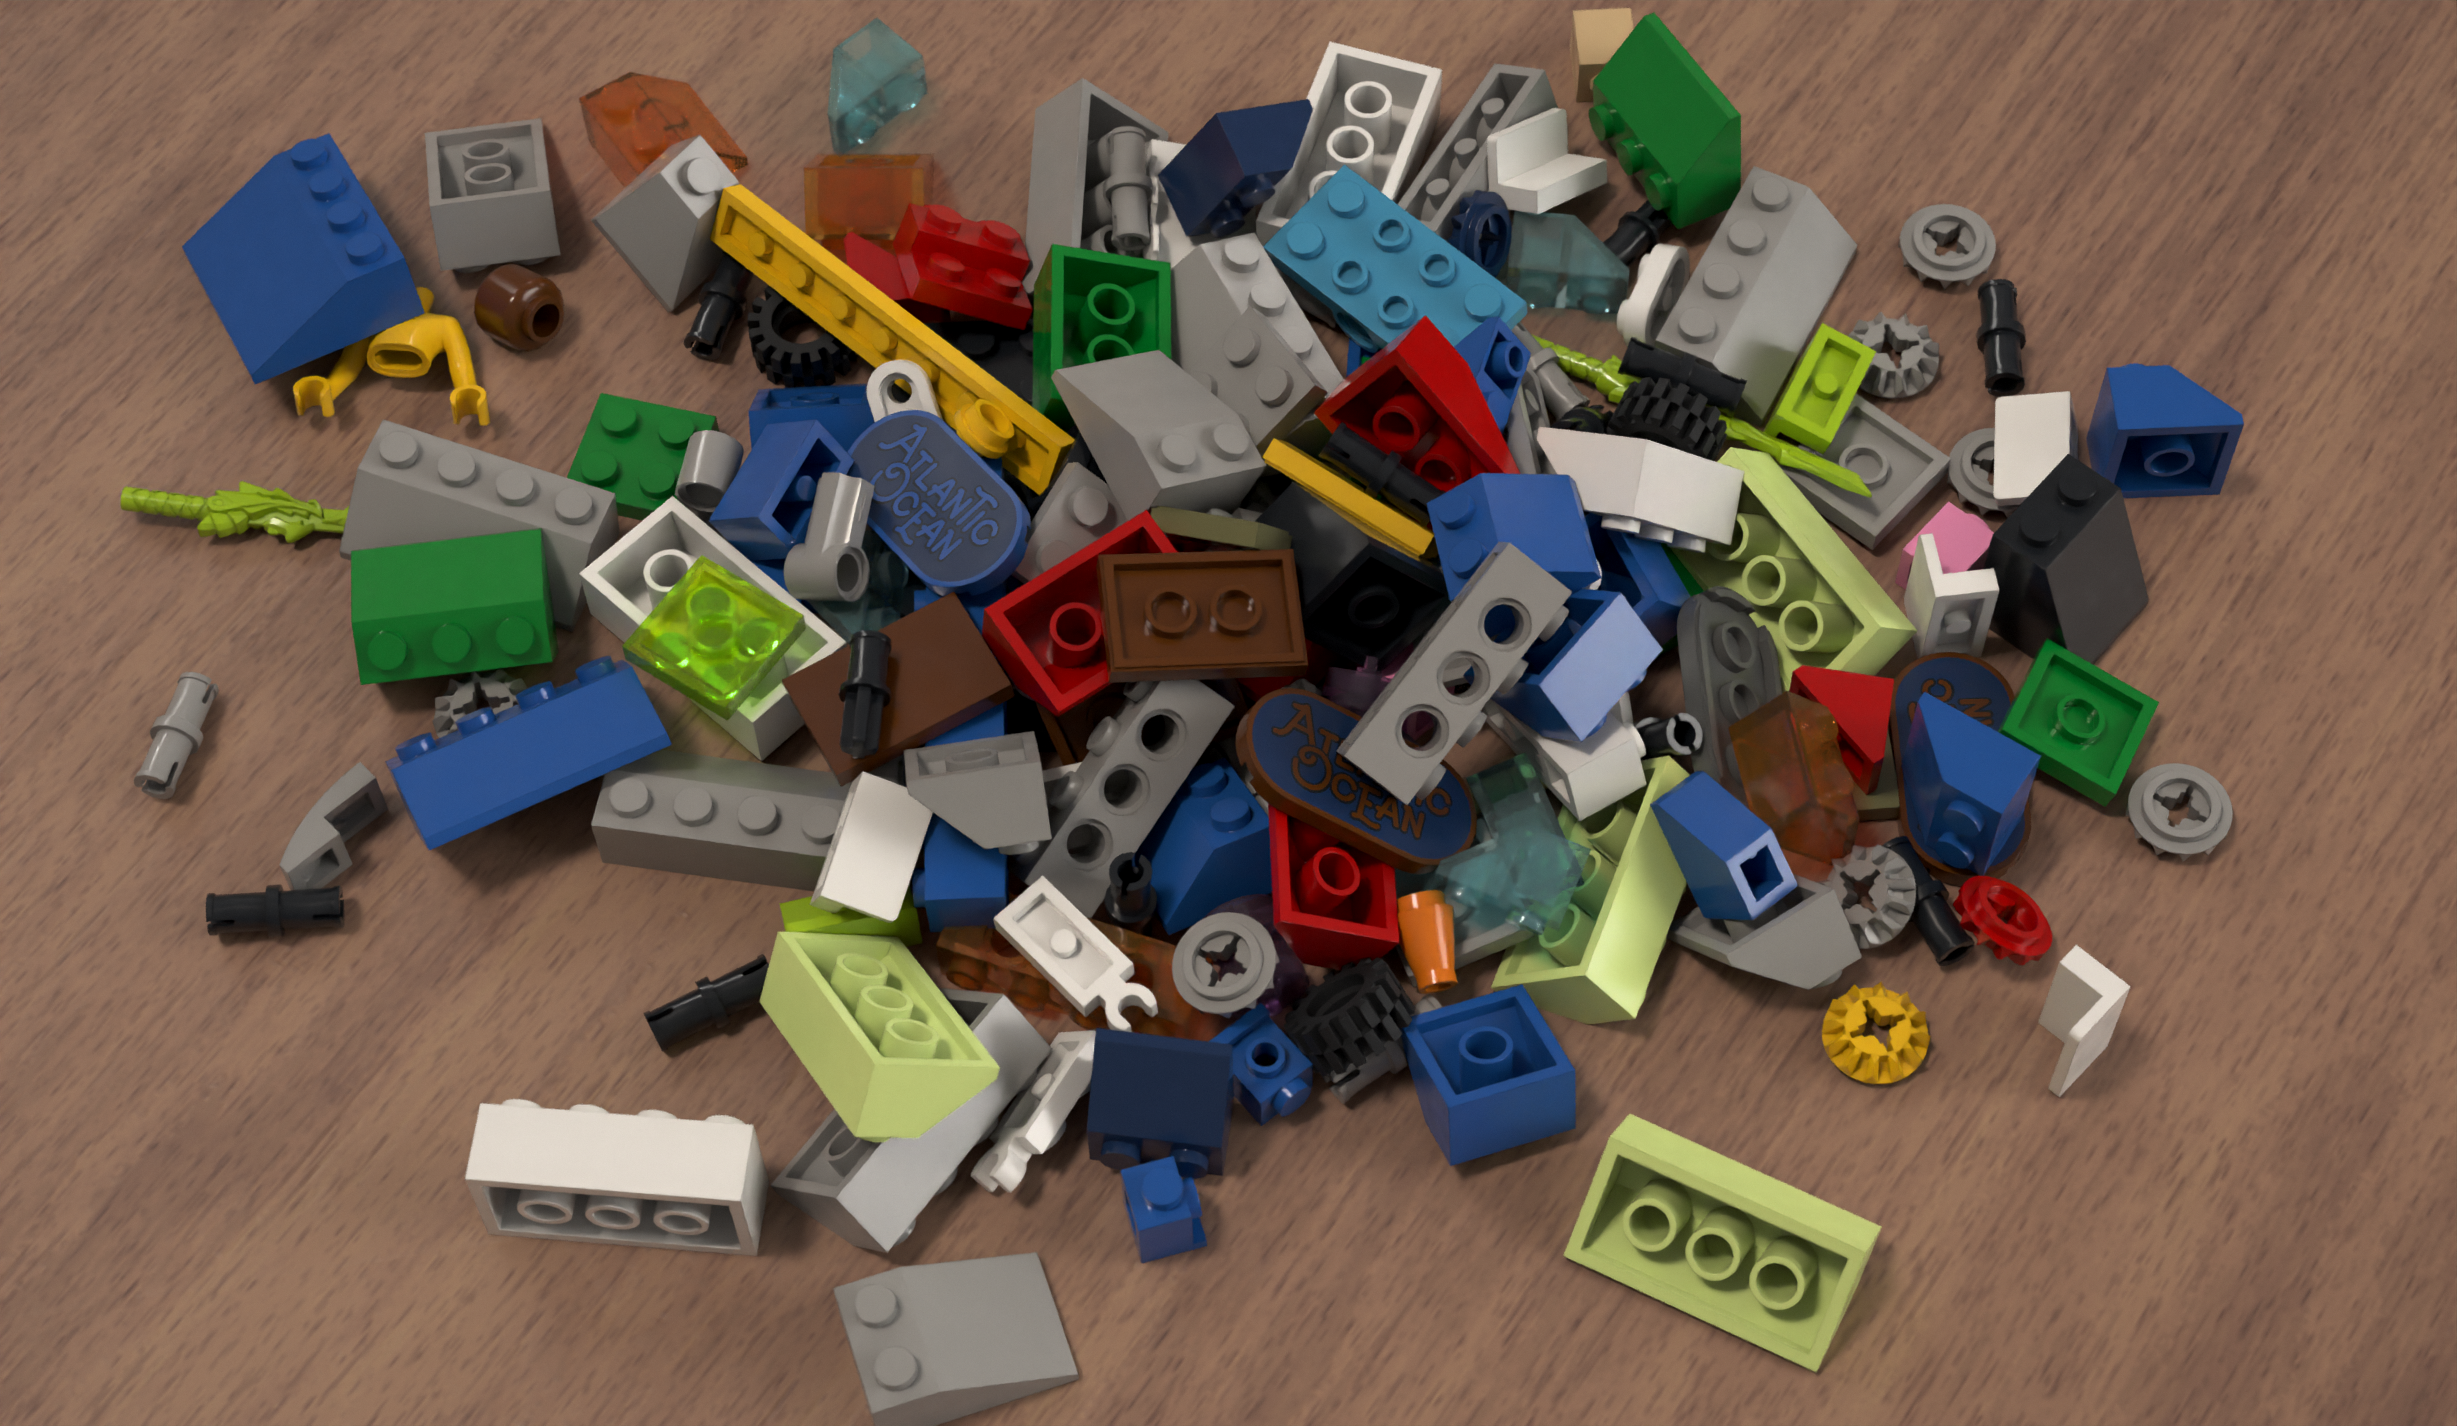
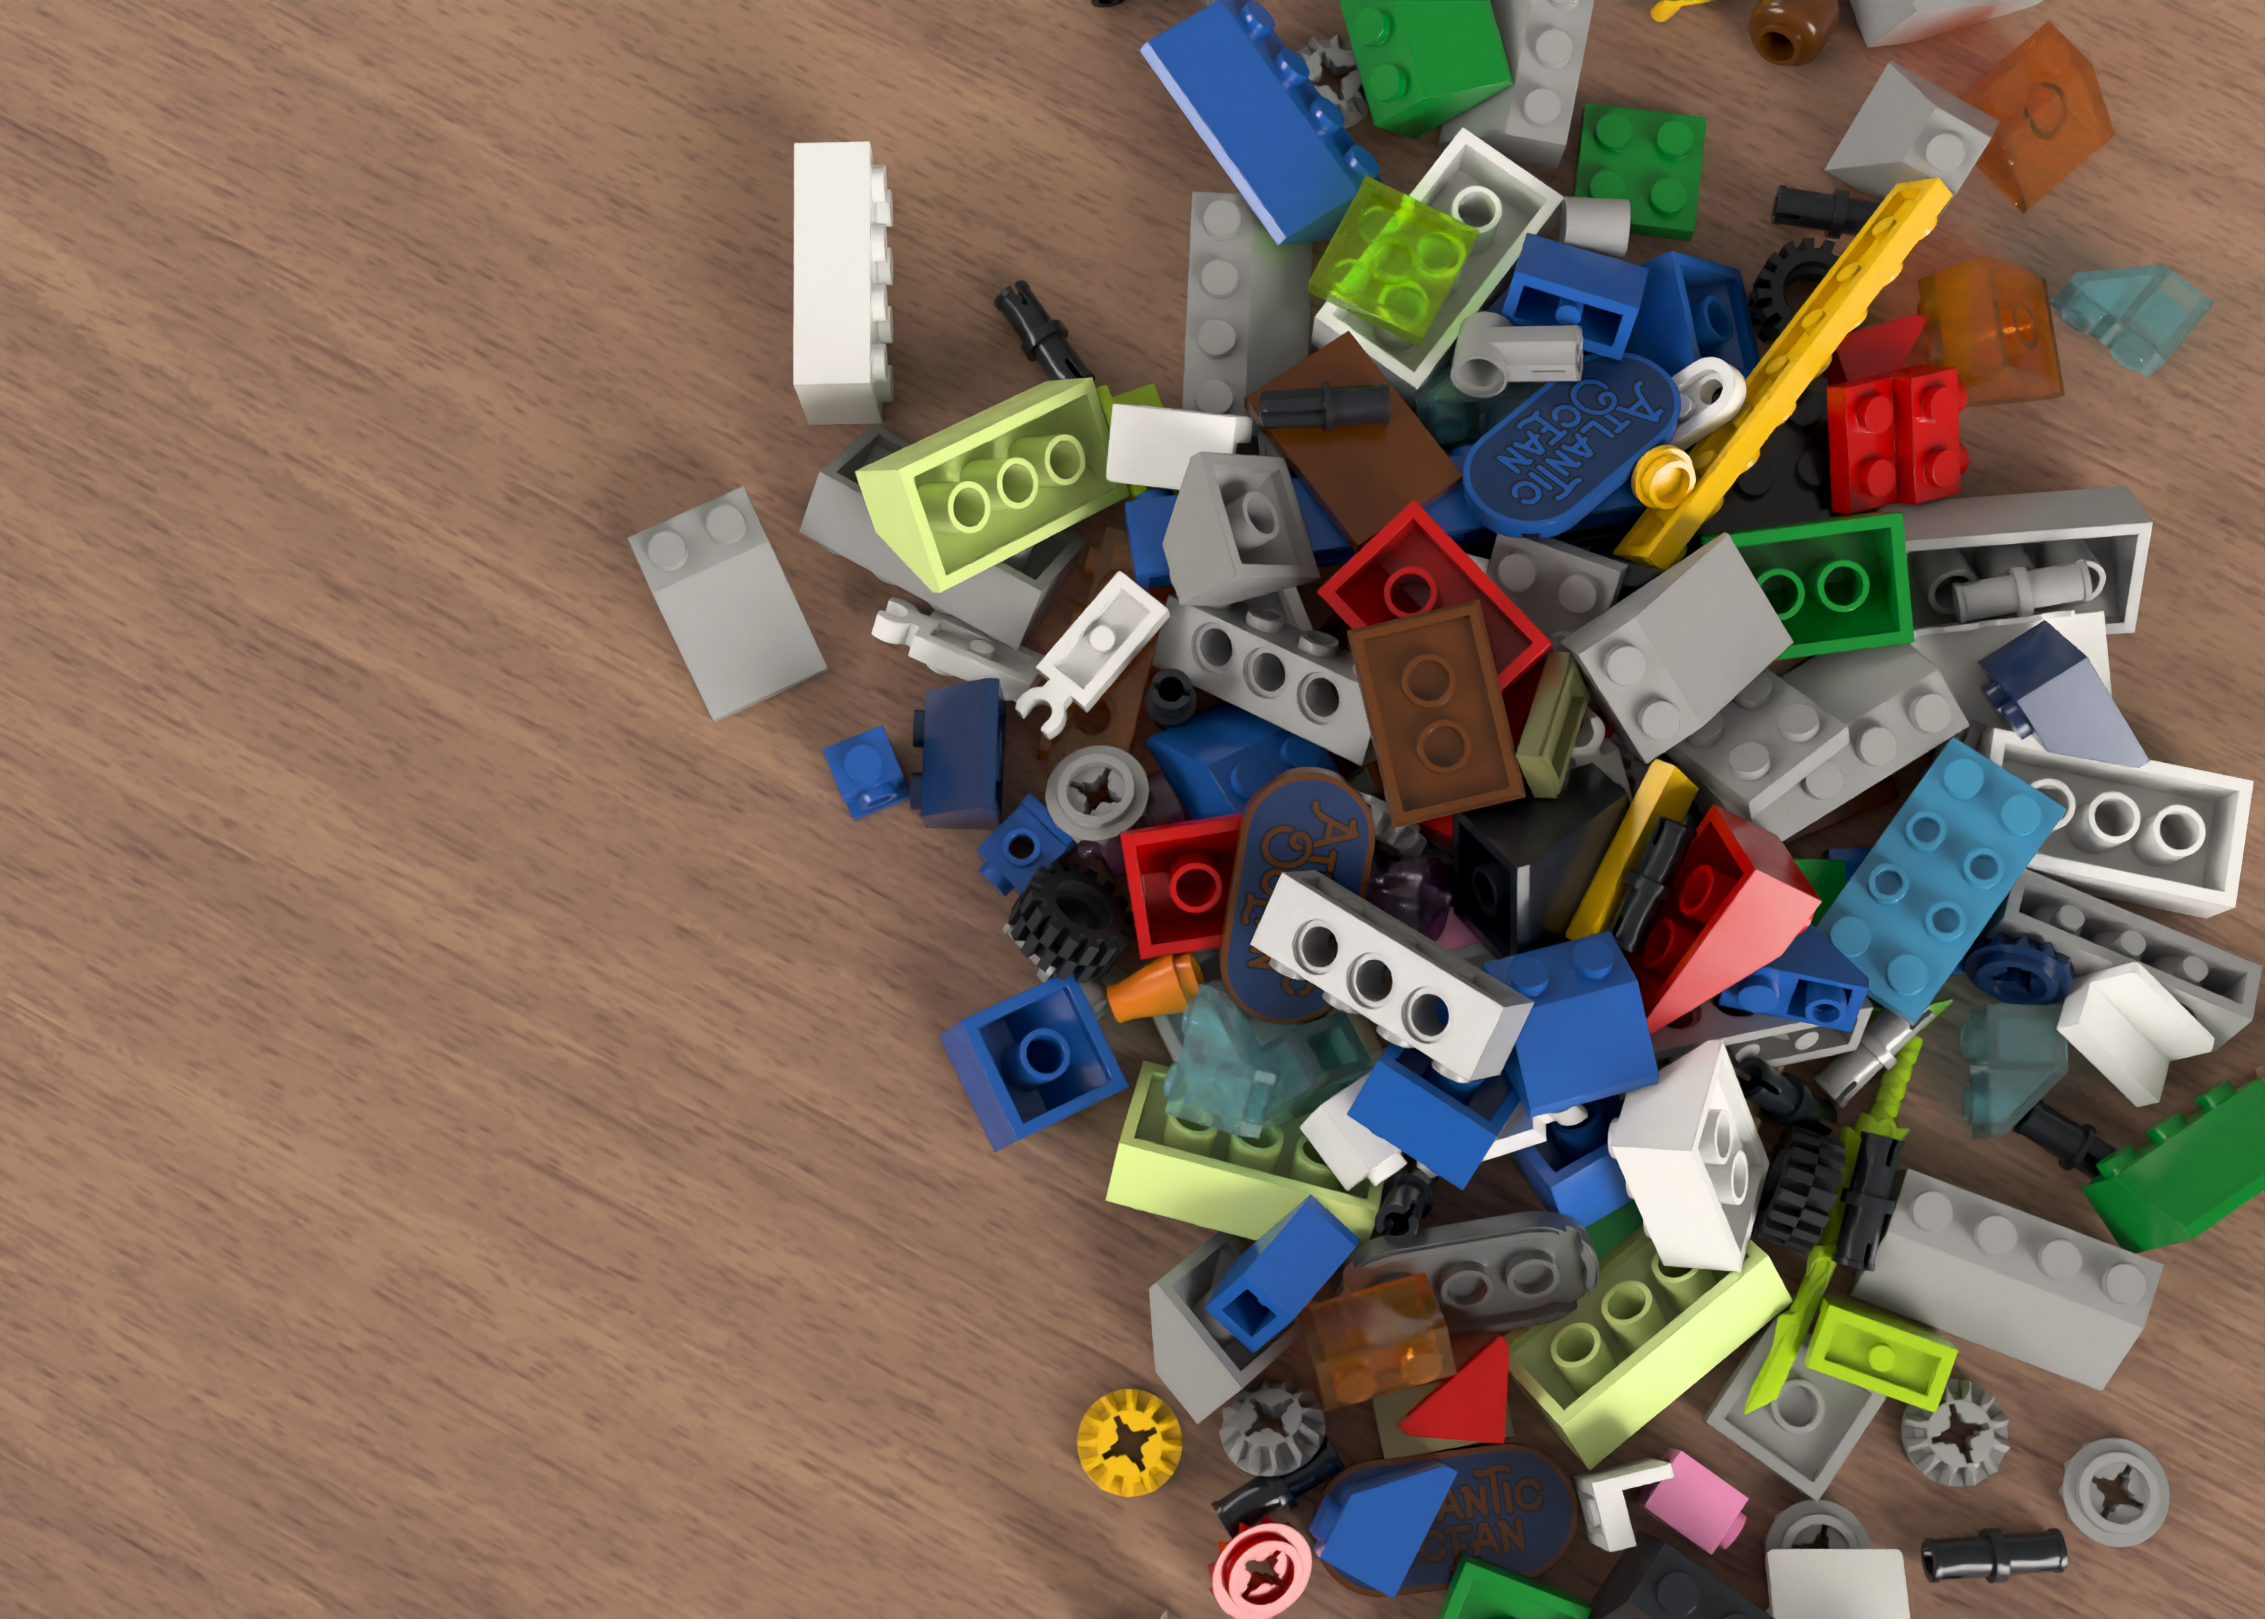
camera: 85 degrees right, 20 degrees up
(1659, 285) = (1997, 1173): white plate -> none
(1721, 1241) = (887, 1302): yellowish green slope -> none

